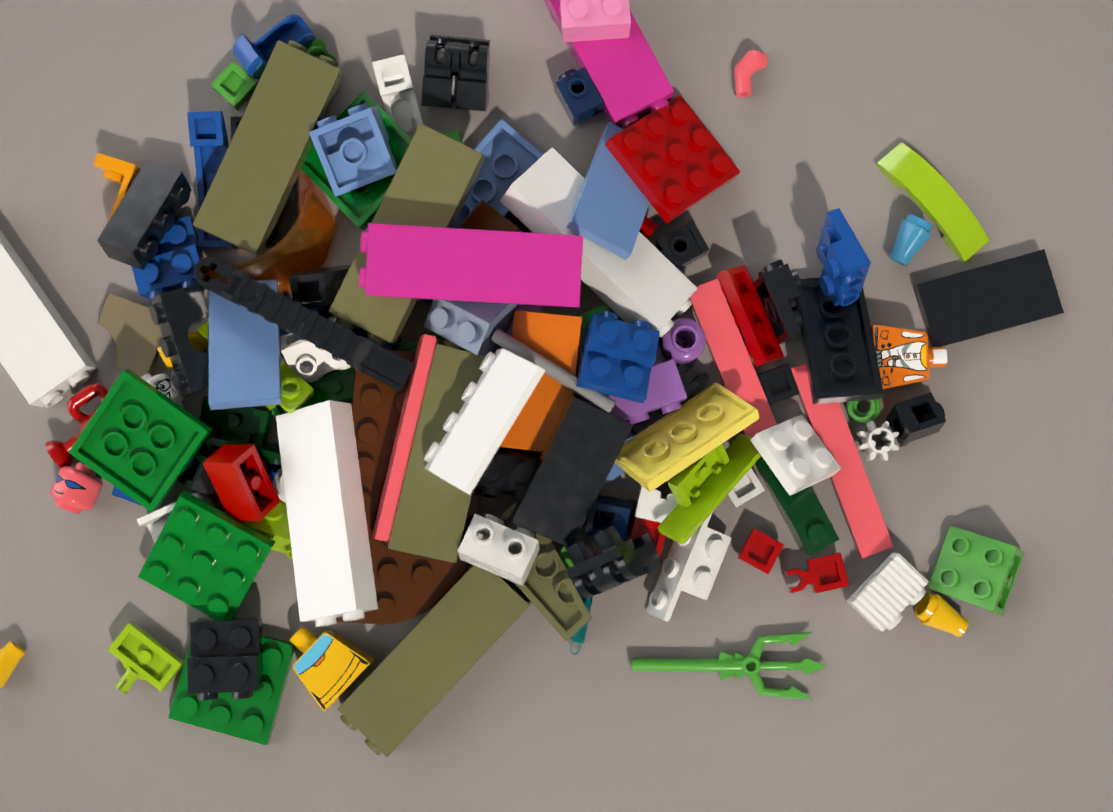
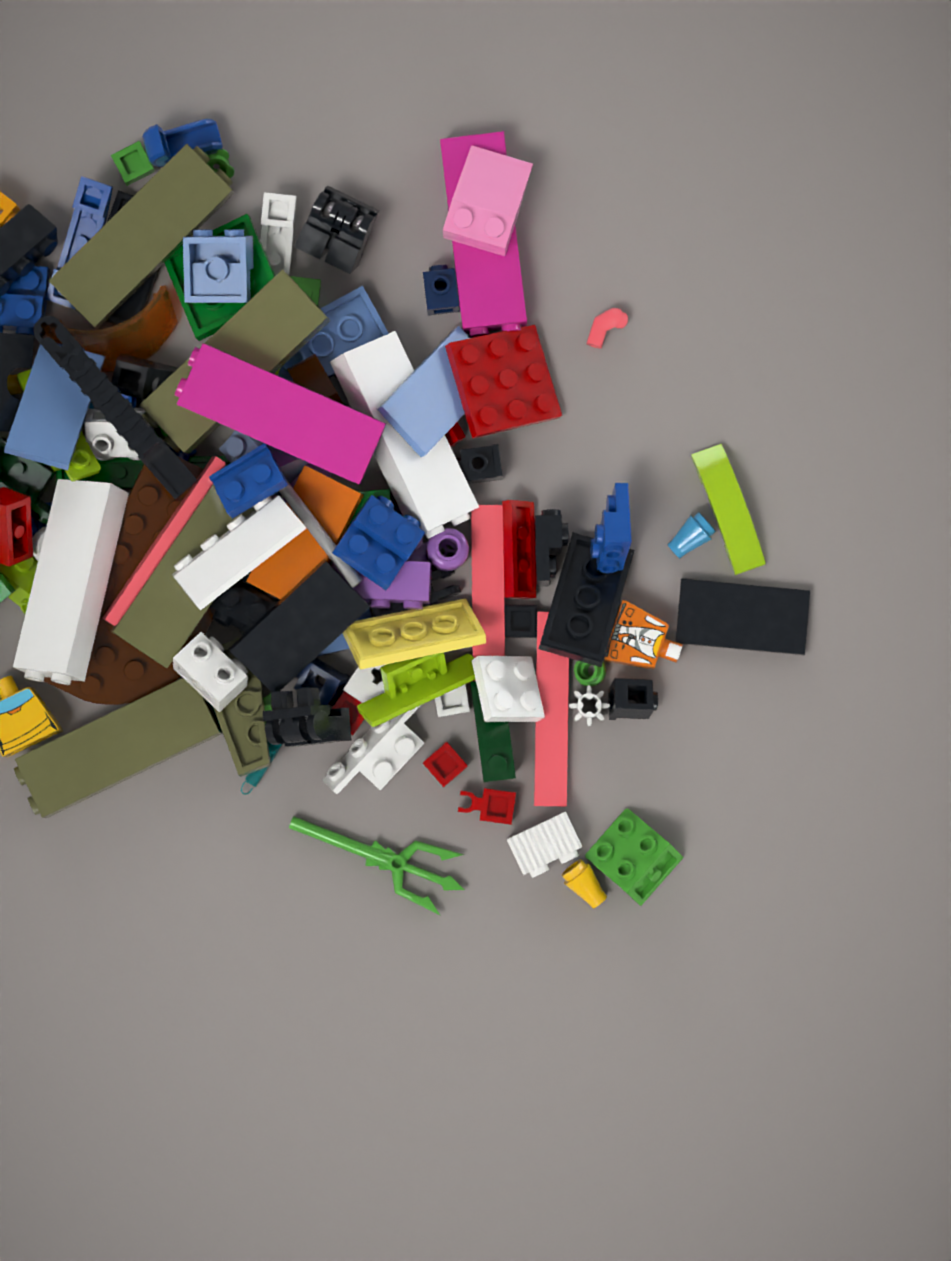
camera: 20 degrees right, 0 degrees up
(466, 345) = (248, 480): none -> blue plate

